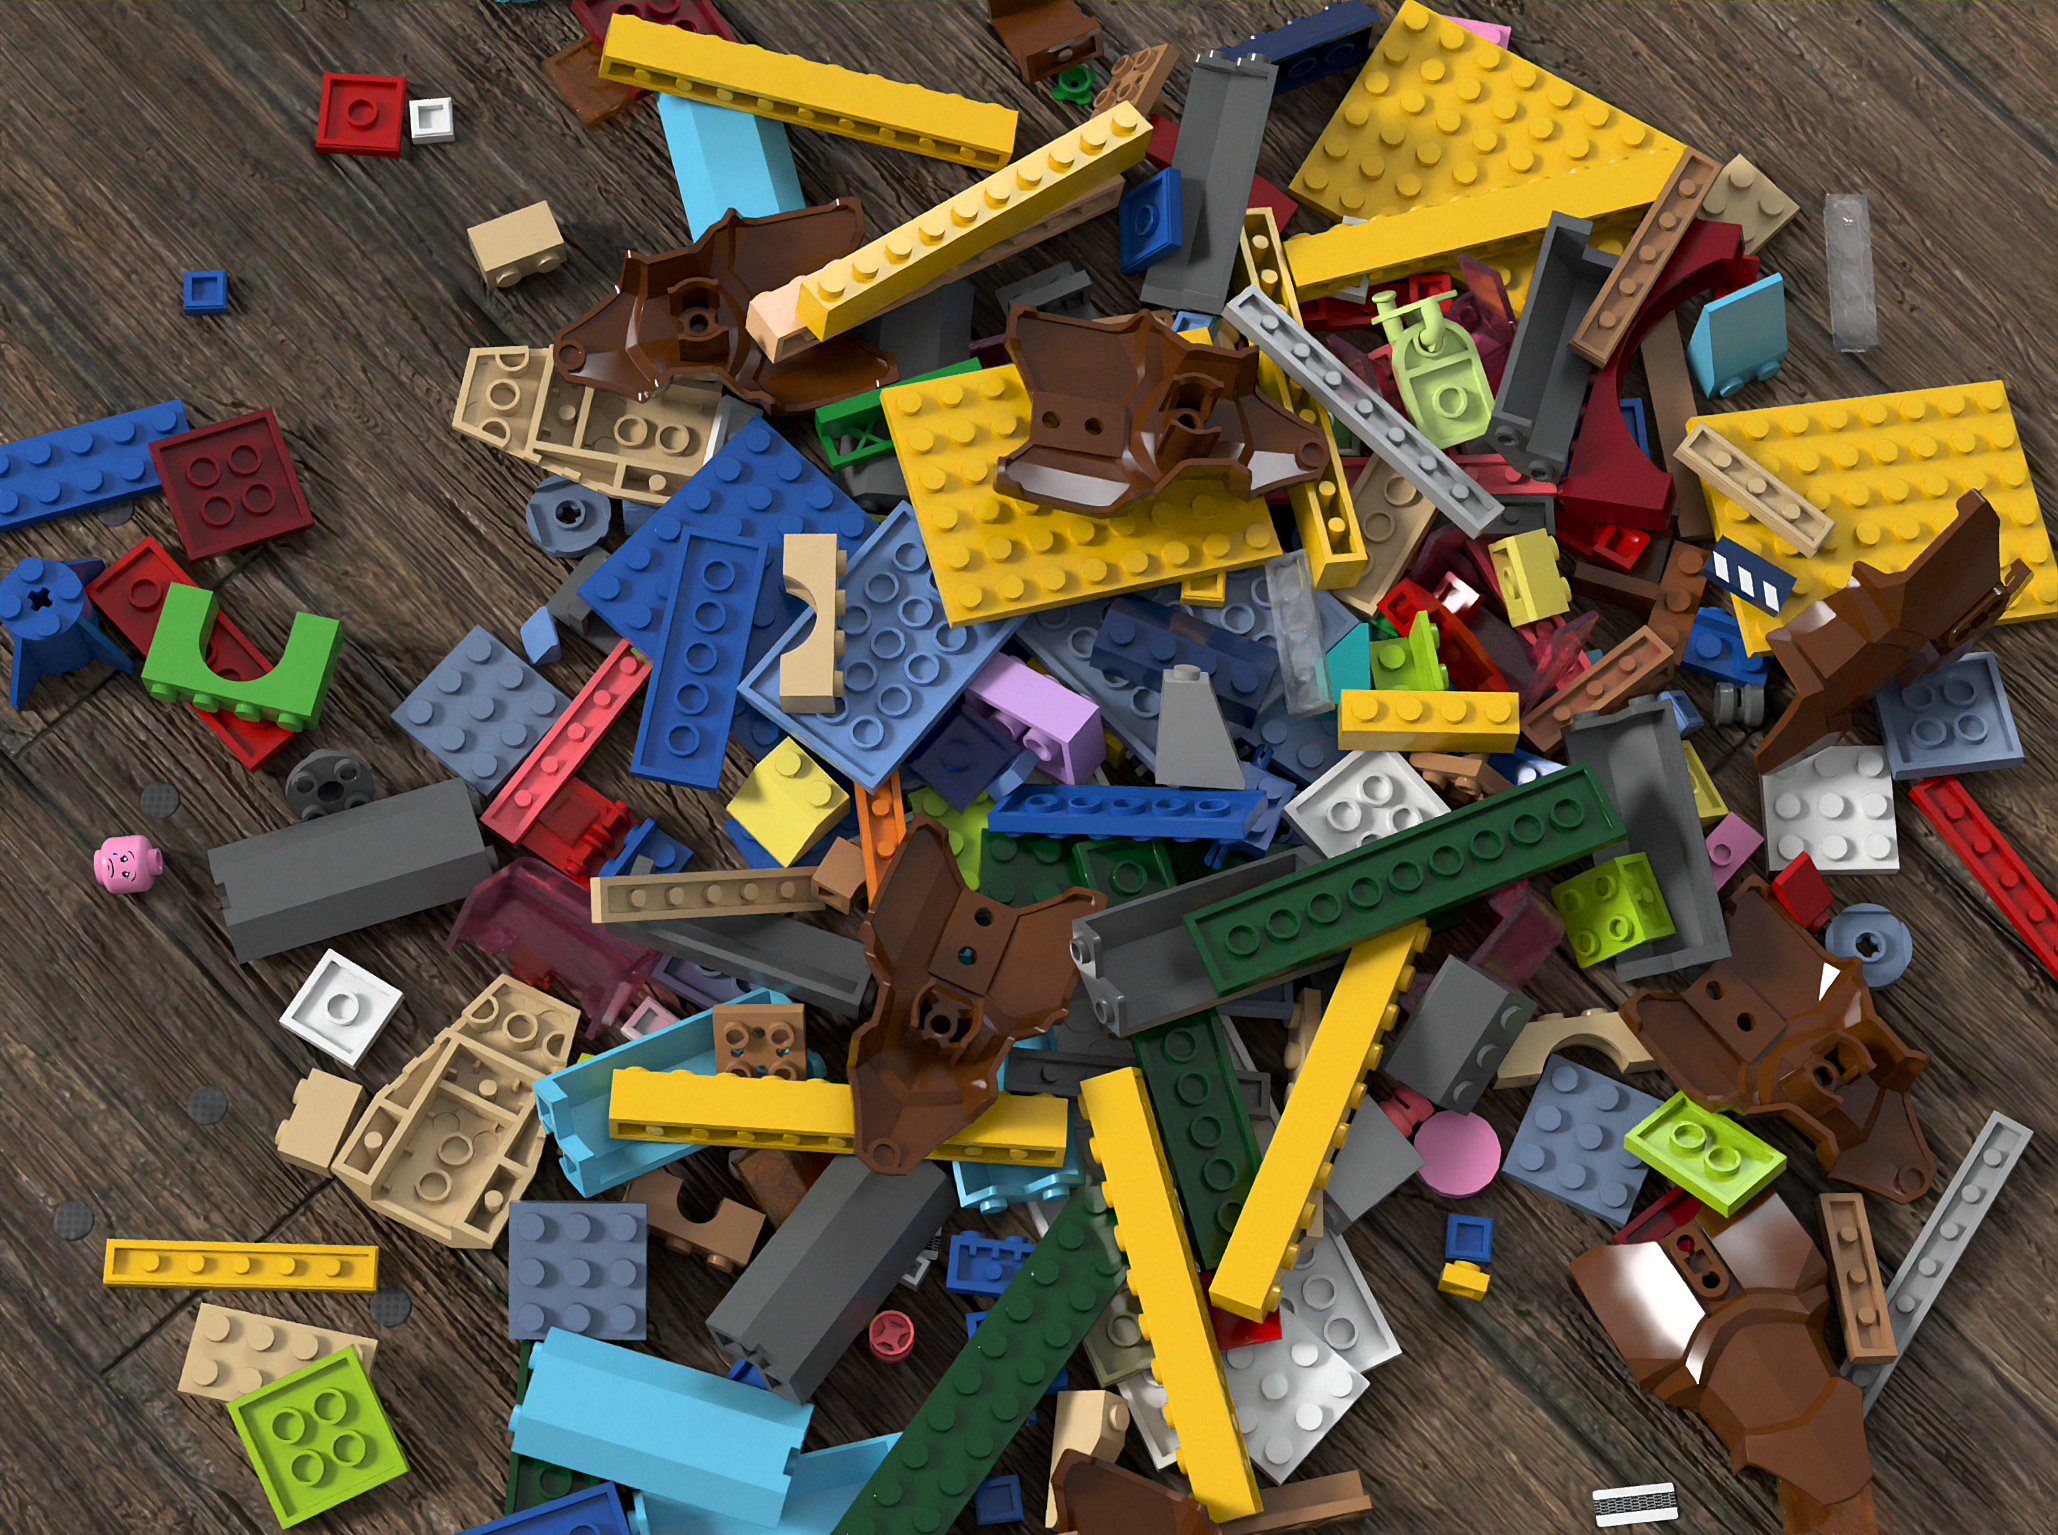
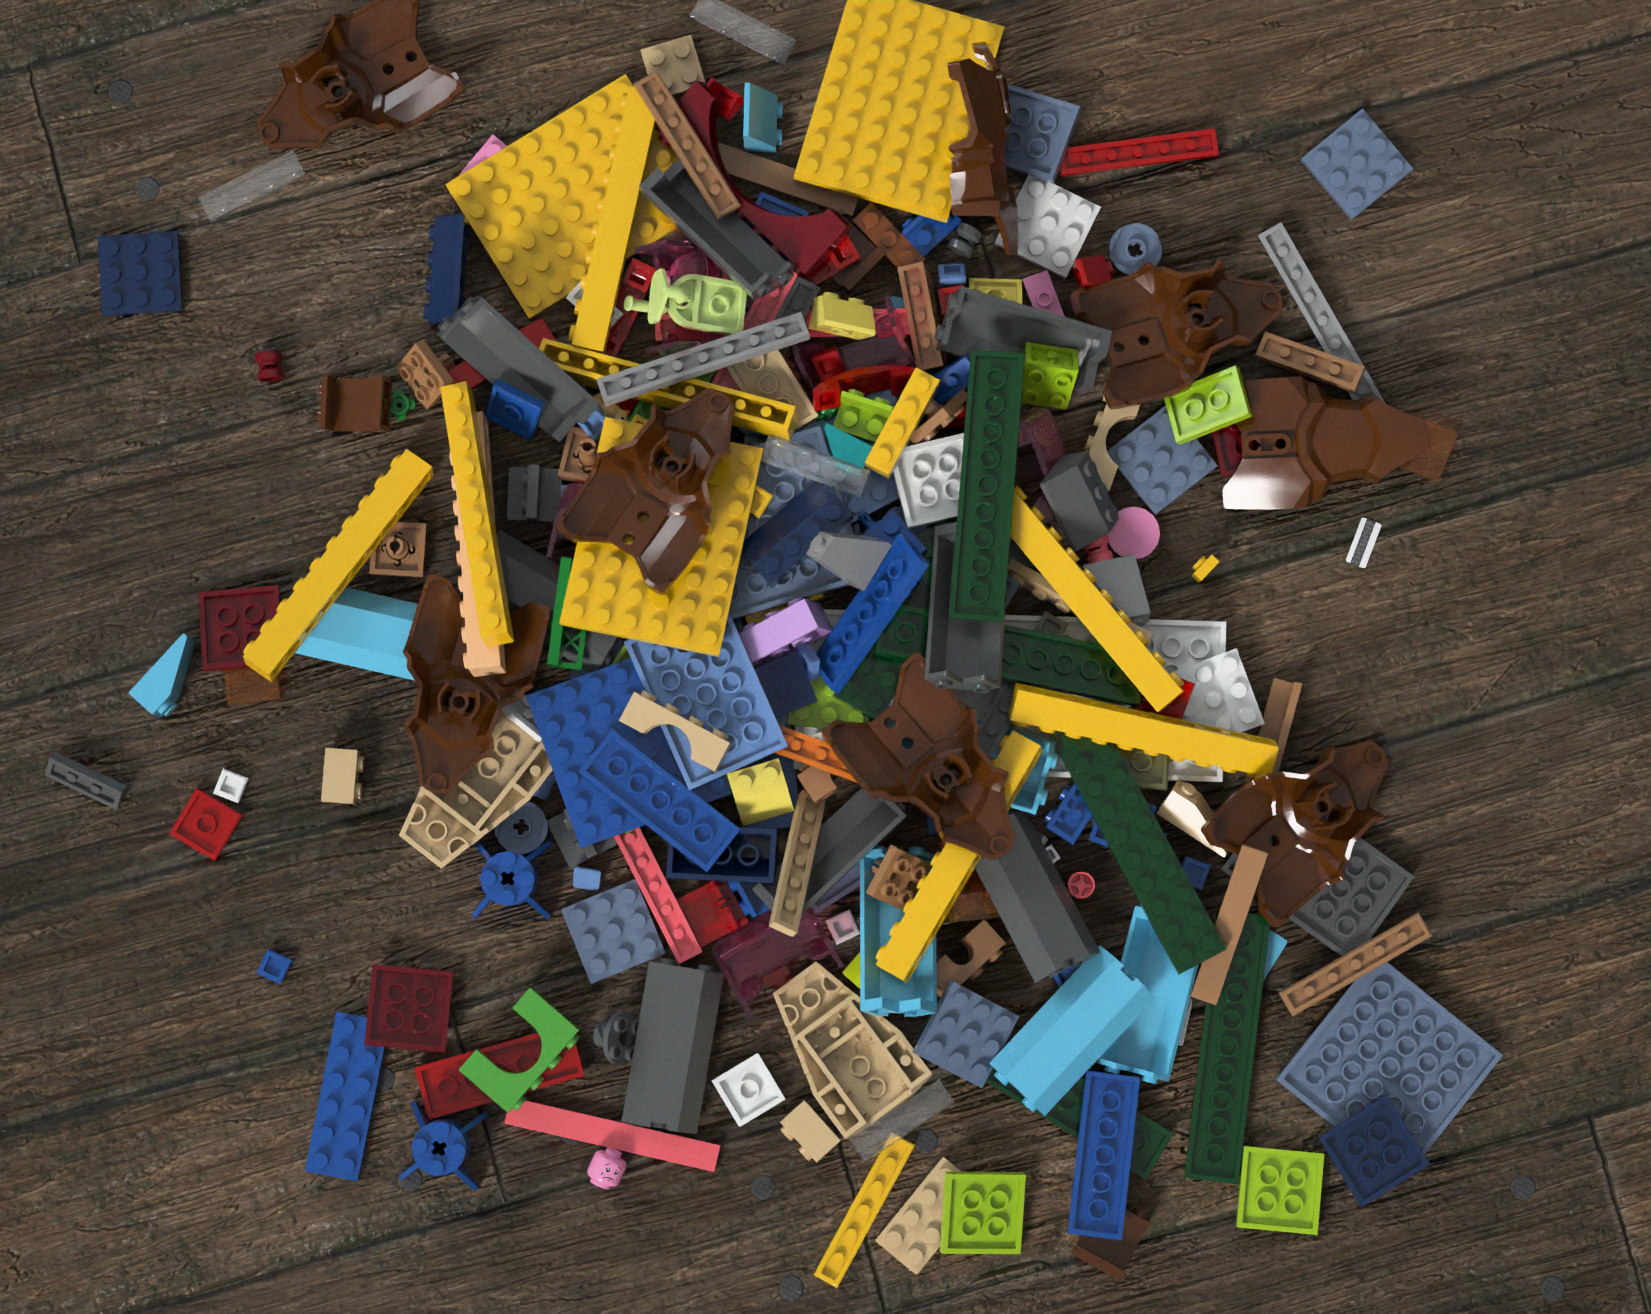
camera: 60 degrees left, 15 degrees up
(184, 858) = (615, 1135): none -> coral tile
(401, 1249) = (901, 1121): none -> clear plate
(485, 528) = (525, 879): none -> blue brick
(679, 824) = (748, 858): none -> dark blue slope
(871, 164) = (411, 564): none -> medium nougat plate
(1468, 1239) = (1181, 552): blue tile -> none
(1748, 576) = (905, 198): dark blue tile -> none
(1755, 489) = (856, 165): tan tile -> none

